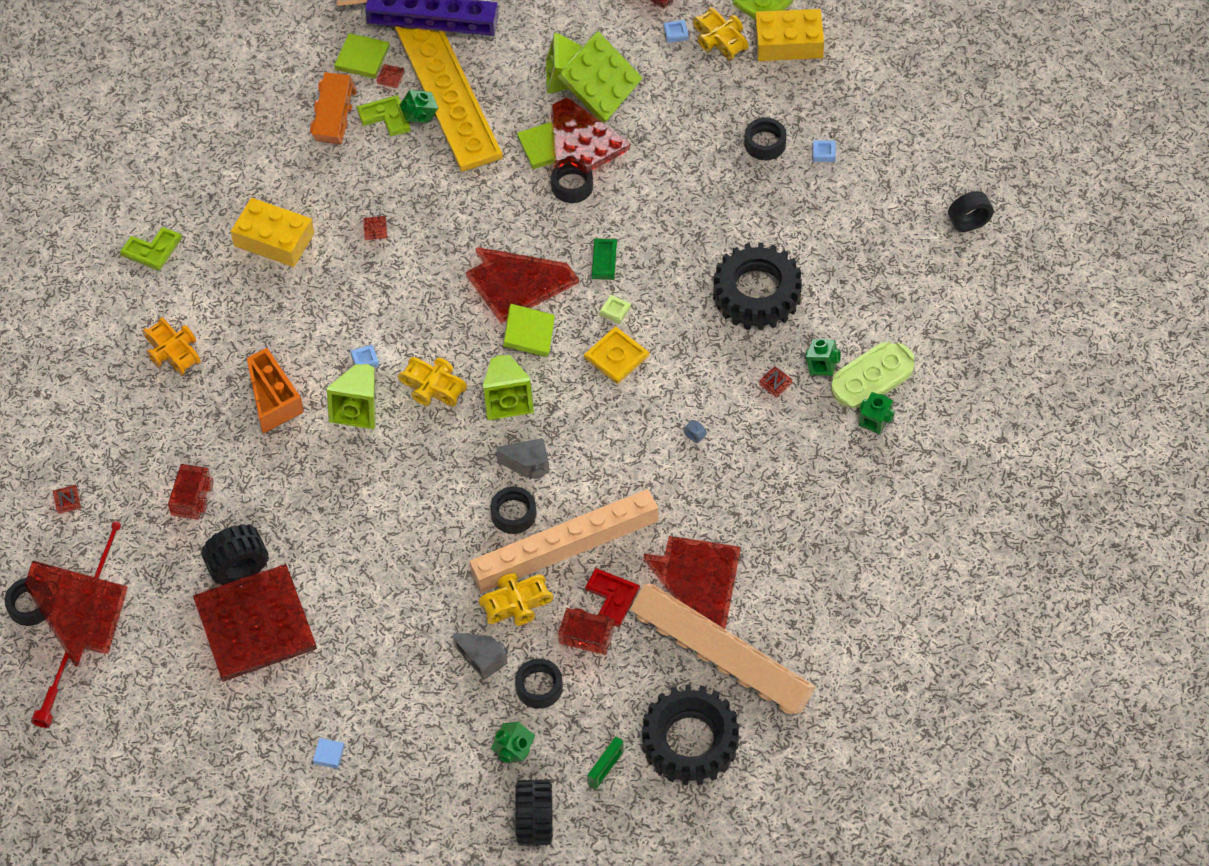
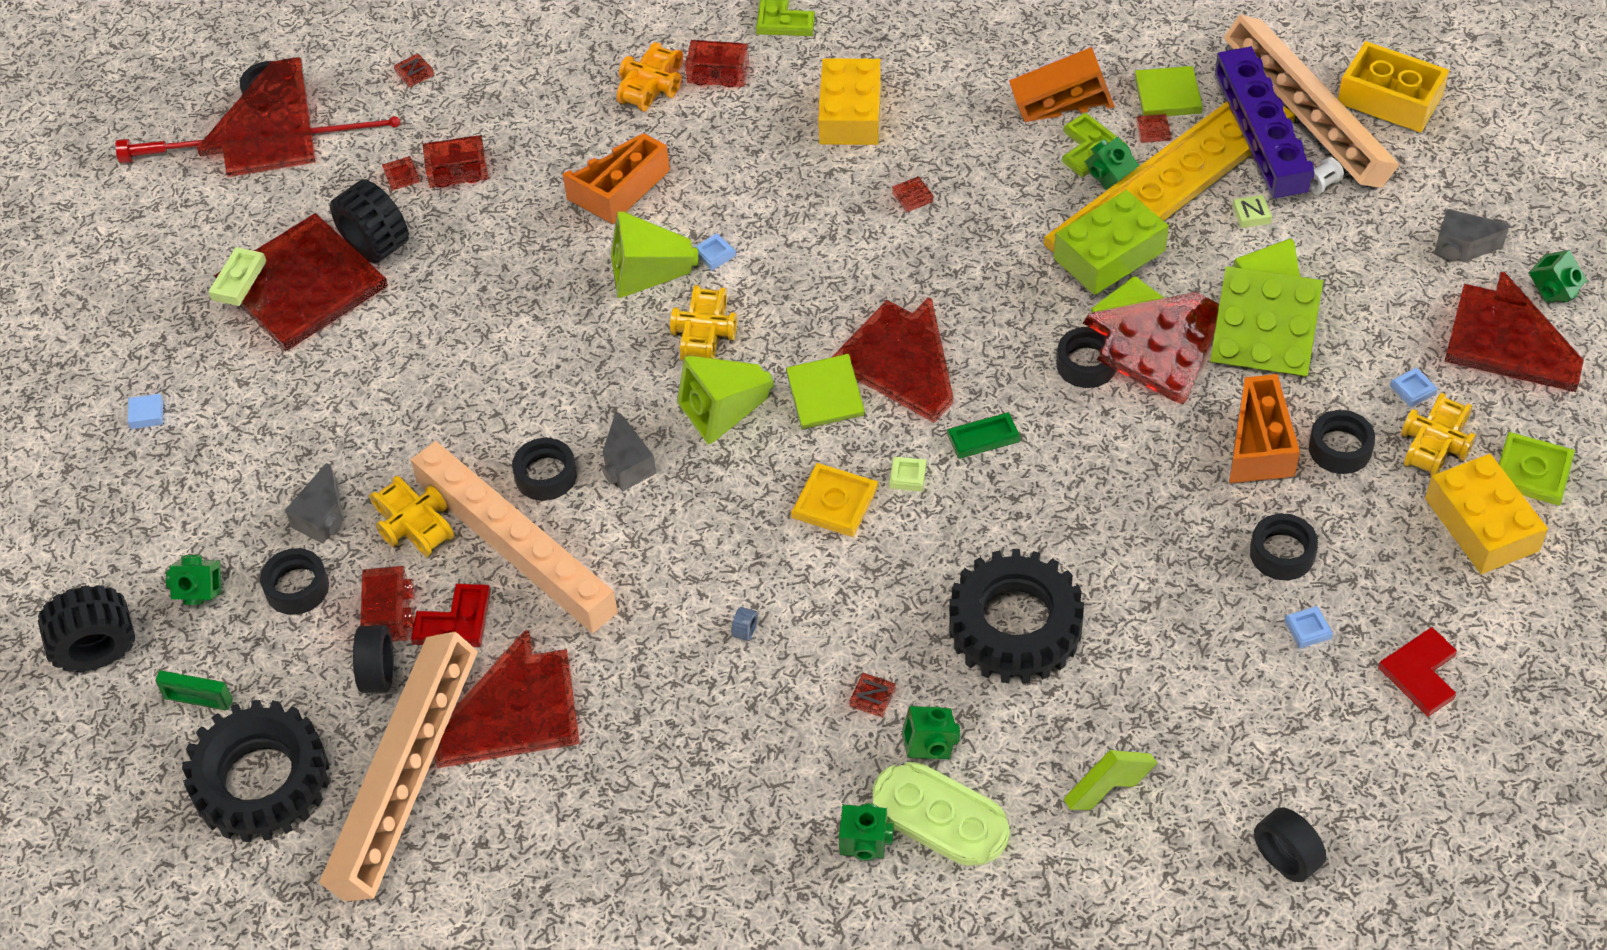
camera: 70 degrees right, 5 degrees down
(175, 533) = (400, 173): none -> clear red tile
(184, 300) = (717, 63): none -> clear red brick
(239, 656) = (237, 276): none -> yellowish green plate
(493, 53) = (1252, 211): none -> yellowish green tile
(494, 129) = (1110, 242): none -> lime brick
(635, 643) = (373, 658): none -> black tyre
(680, 113) = (1264, 433): none -> orange wedge
(702, 94) = (1339, 461): none -> black tyre
(875, 116) = (1413, 670): none -> red tile
(892, 273) = (1112, 770): none -> lime tile

